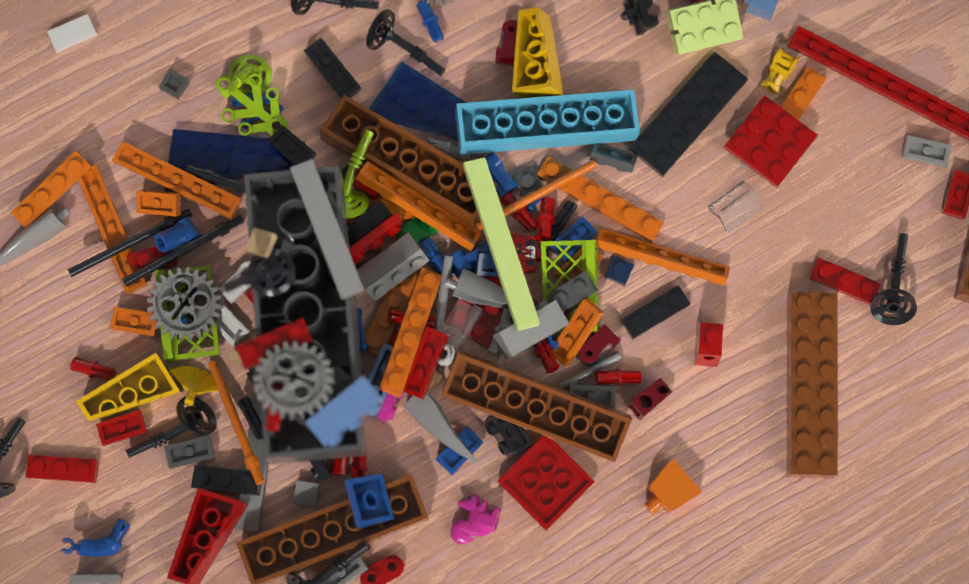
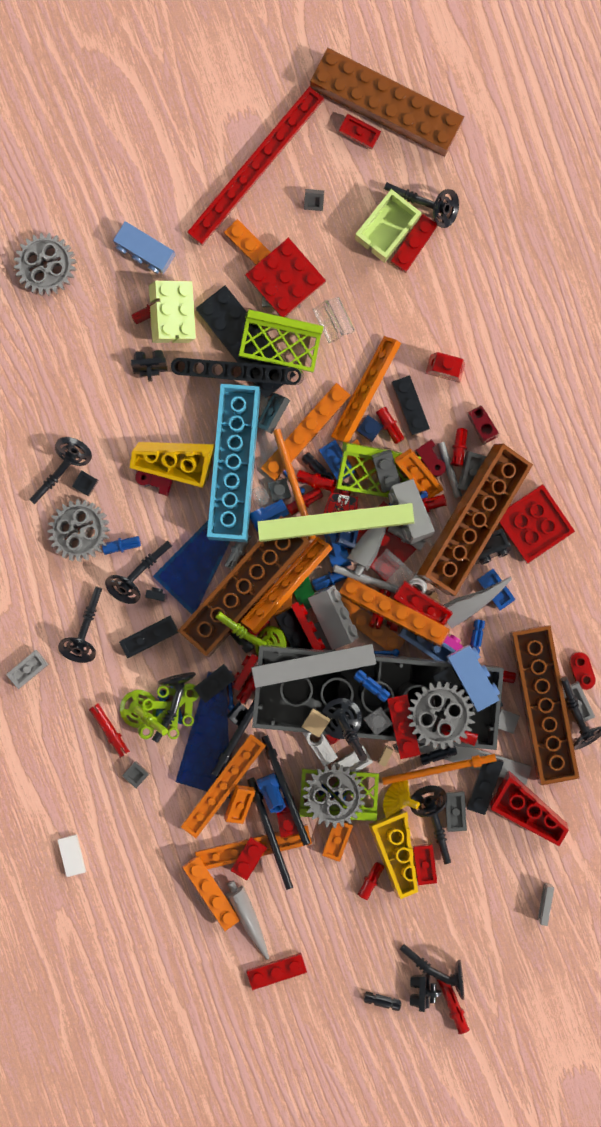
camera: 75 degrees left, 10 degrees up
(62, 468) = (448, 919): red plate -> none
(97, 223) = (248, 858): none -> red plate
(100, 547) = (521, 895): blue arm -> none
(217, 48) = (113, 737): none -> red pin
(275, 313) = (378, 721): none -> clear plate
(284, 108) = (177, 682): none -> black dish
(315, 298) = (371, 685): none -> blue axle
(369, 500) = (530, 671): blue slope -> none
(381, 68) = (156, 593): none -> black plate
(398, 439) = (477, 634): none -> blue axle
(480, 520) = (558, 584): dark pink animal -> none
(515, 161) = (260, 496): none -> clear plate
(627, 292) = (390, 425): none -> red axle
(655, 116) = (228, 368): none -> black beam
(671, 489) = (560, 423): orange torso -> none
(716, 143) = (281, 324): none -> lime fence
(780, 67) = (221, 255): yellow connector -> none
(812, 385) = (497, 290): dark orange brick -> none
(857, 244) = (388, 225): none -> yellowish green piece
(868, 157) = (314, 199): none -> dark grey plate
(926, 151) = (317, 150): light grey plate -> none

